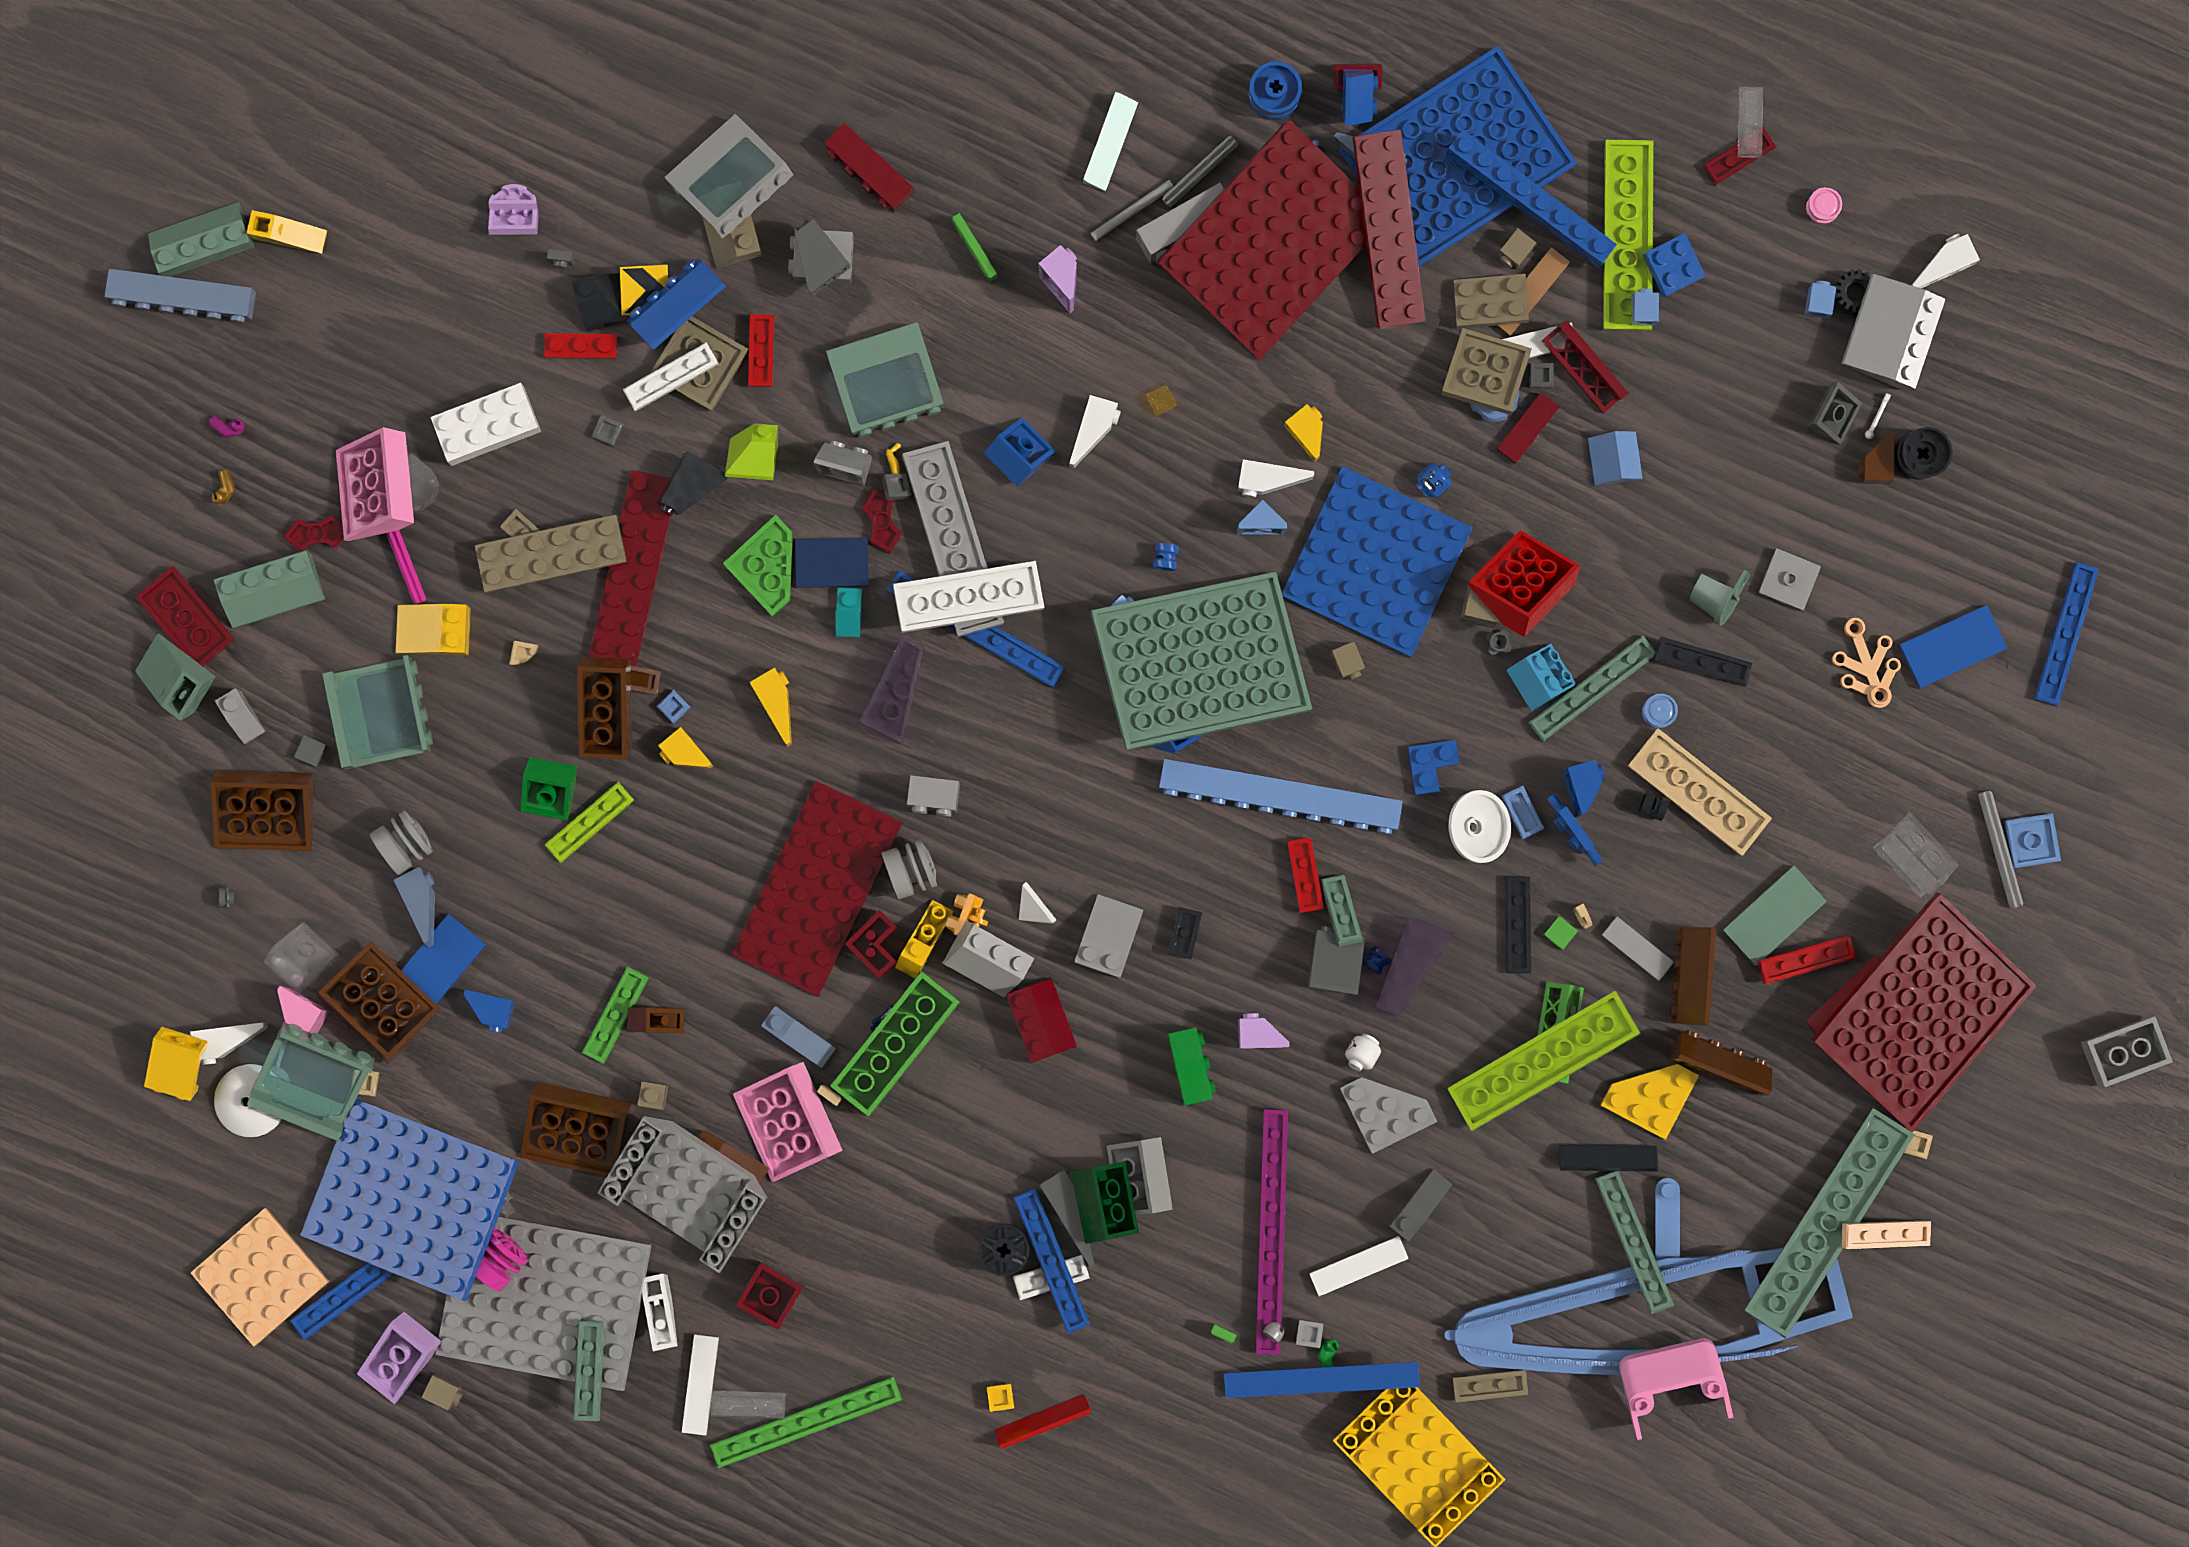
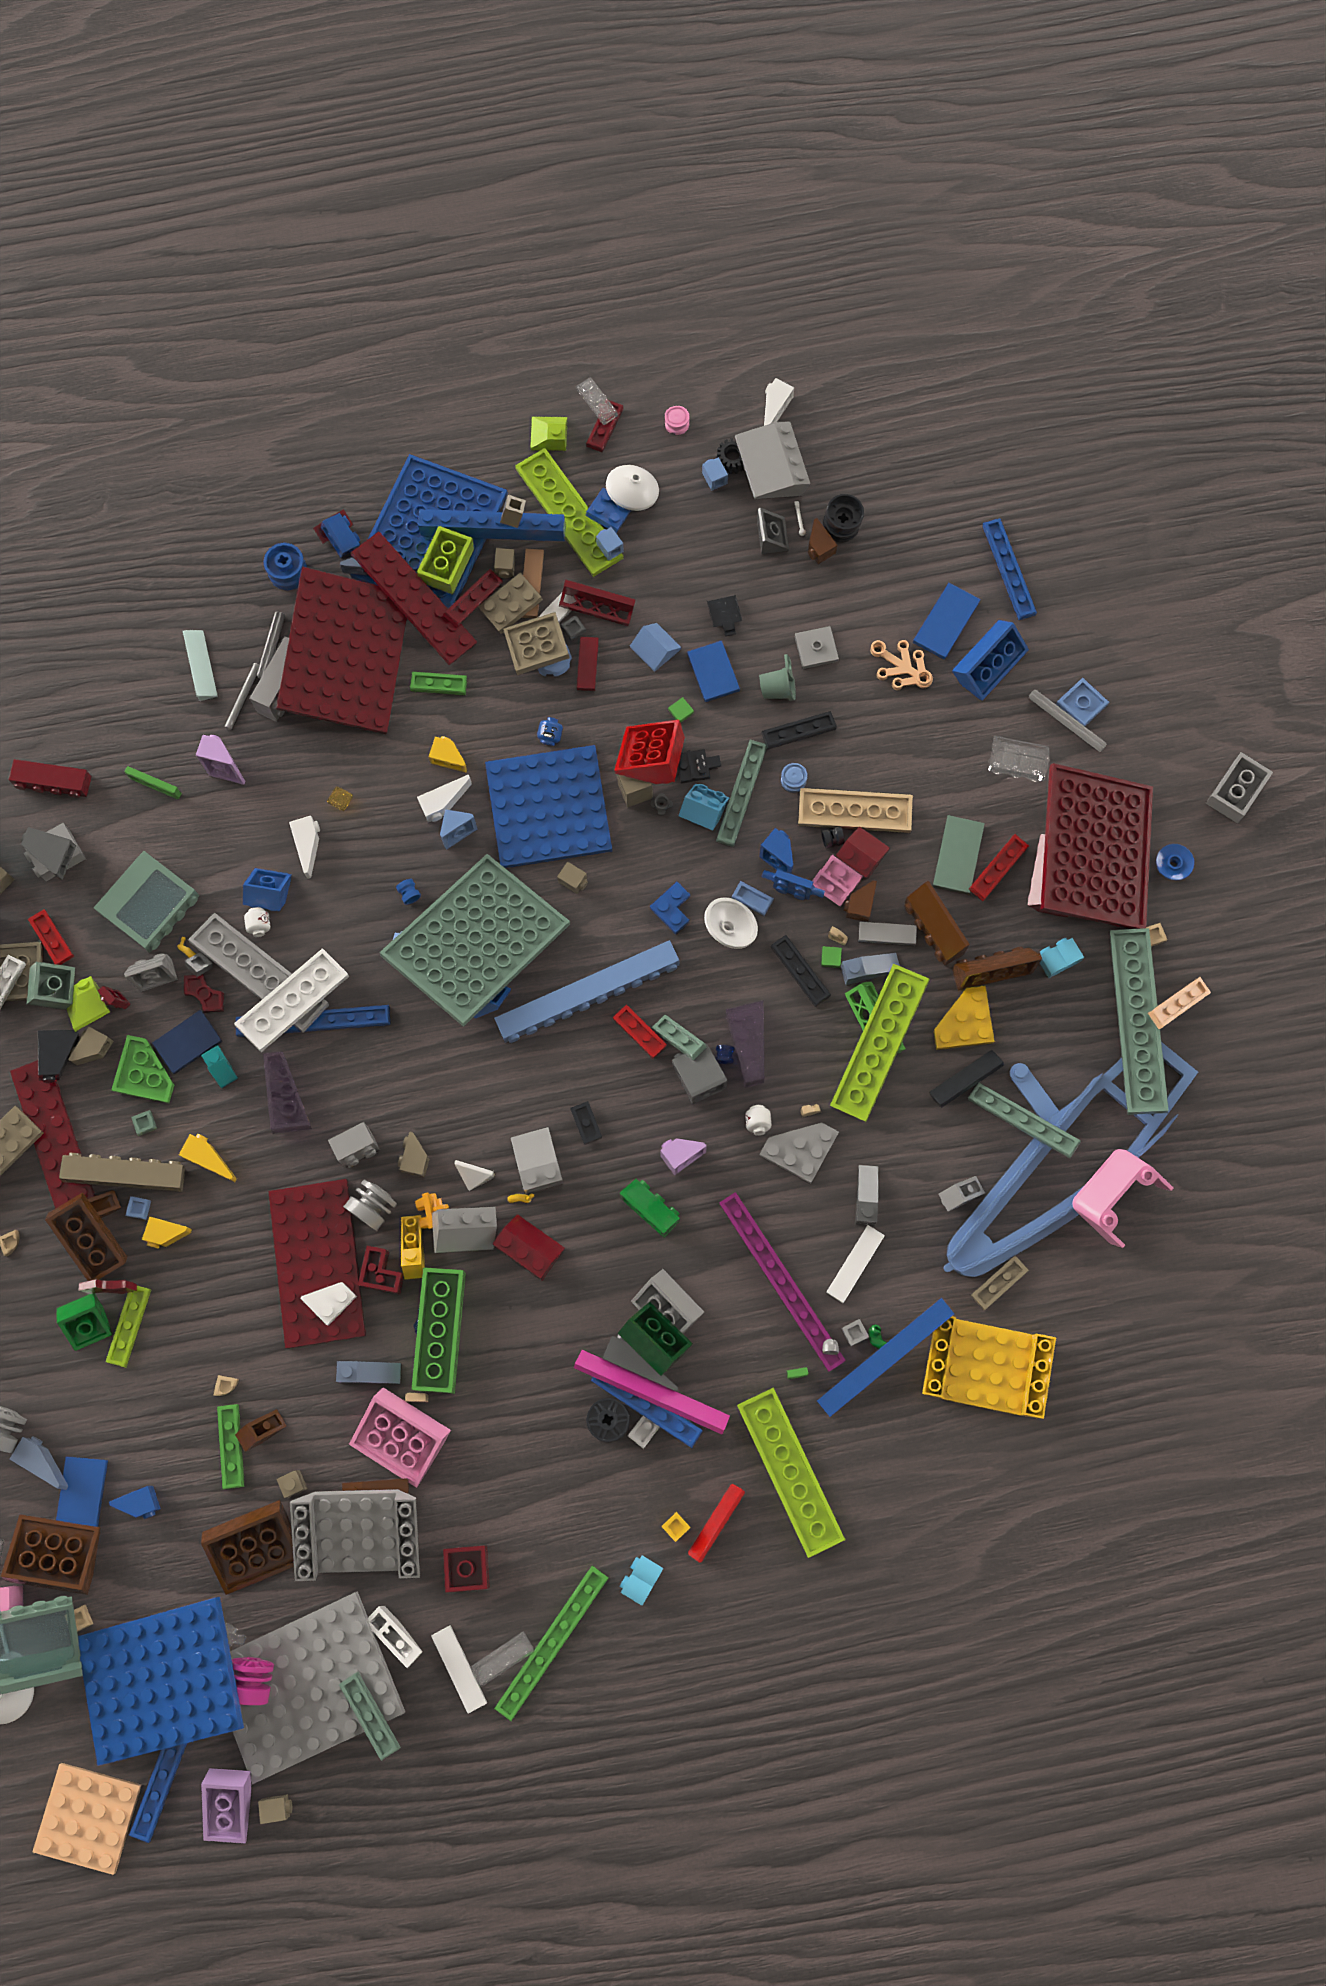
camera: 30 degrees left, 10 degrees down
(595, 772) = (101, 1286): none -> dark red tile
(647, 950) = (225, 1385): none -> tan tile
(680, 661) = (122, 1173): none -> dark tan brick
(730, 408) = (50, 985): none -> sand green brick
(730, 502) = (91, 1047): none -> dark tan slope
(734, 620) = (144, 1123): none -> sand green tile
(786, 466) = (113, 997): none -> dark red plate
(805, 939) = (329, 1301): none -> white wing
(932, 1424) = (641, 1580): none -> medium azure brick
(986, 482) = (257, 922): none -> white head
(987, 848) = (414, 1159): none -> dark tan slope
(1066, 963) = (520, 1197): none -> yellow piece
(1066, 1251) = (652, 1392): none -> dark pink tile
(1149, 1423) = (790, 1472): none -> lime plate
(1352, 340) = (438, 683): none -> bright green tile
(1424, 1079) = (810, 1110): none -> tan tile
(1452, 207) = (445, 559): none -> lime brick
(1454, 269) = (473, 598): none -> dark red tile
(1517, 1271) = (961, 1193): none -> light grey slope
(1560, 209) = (512, 511): none -> dark tan brick
(1565, 624) = (696, 766): none -> black piece
(1592, 550) = (681, 710): none -> bright green tile
(1592, 973) = (868, 967): none -> sand blue slope
(1624, 854) = (837, 880): none -> bright pink slope
(1632, 897) = (861, 903): none -> reddish brown slope
(1658, 530) = (713, 671): none -> blue tile
(1671, 122) = (549, 433): none -> lime slope
(1673, 845) = (862, 852): none -> dark red slope
(1706, 258) = (632, 487): none -> white dish
(1717, 471) = (725, 613): none -> black piece
(1799, 1100) = (1060, 957): none -> medium azure brick
(1968, 724) = (991, 659): none -> blue slope
(2009, 1083) = (1178, 854): none -> blue dish

